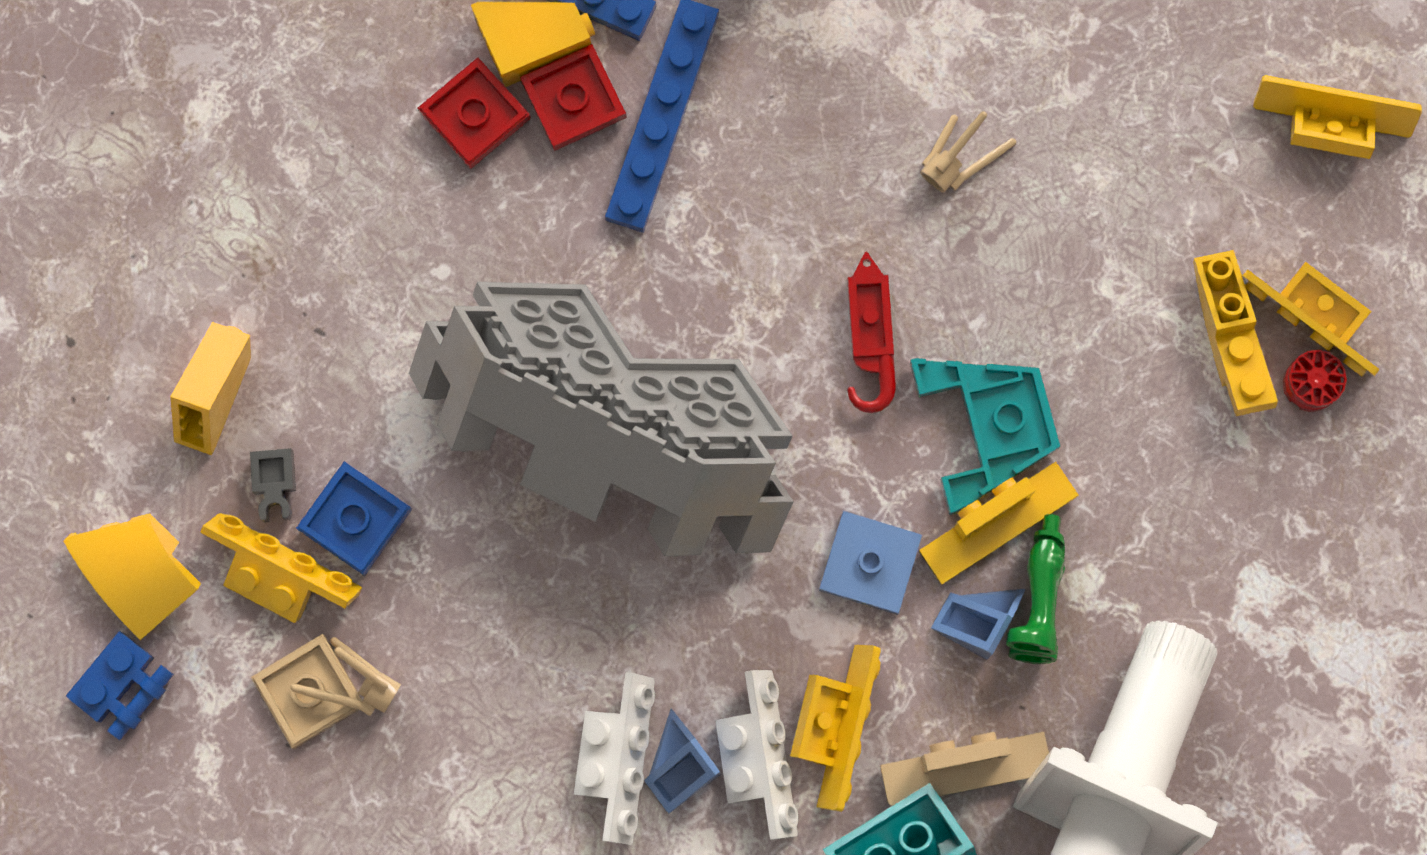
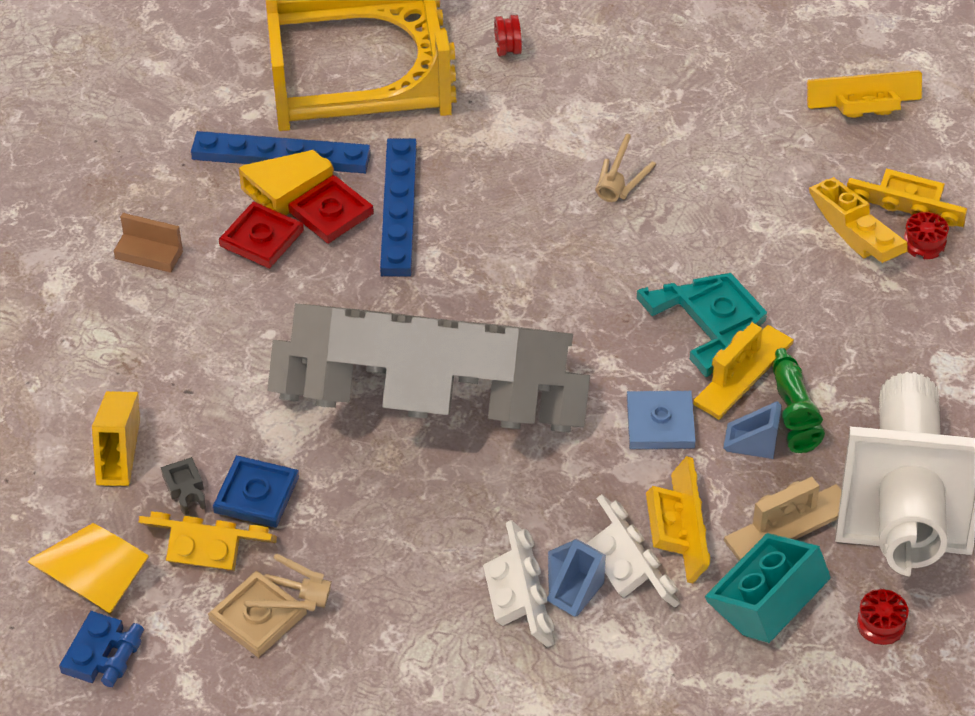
camera: 20 degrees left, 30 degrees down
(329, 88) = (149, 243): none -> medium nougat panel
(871, 332) = (601, 285): red plate -> none

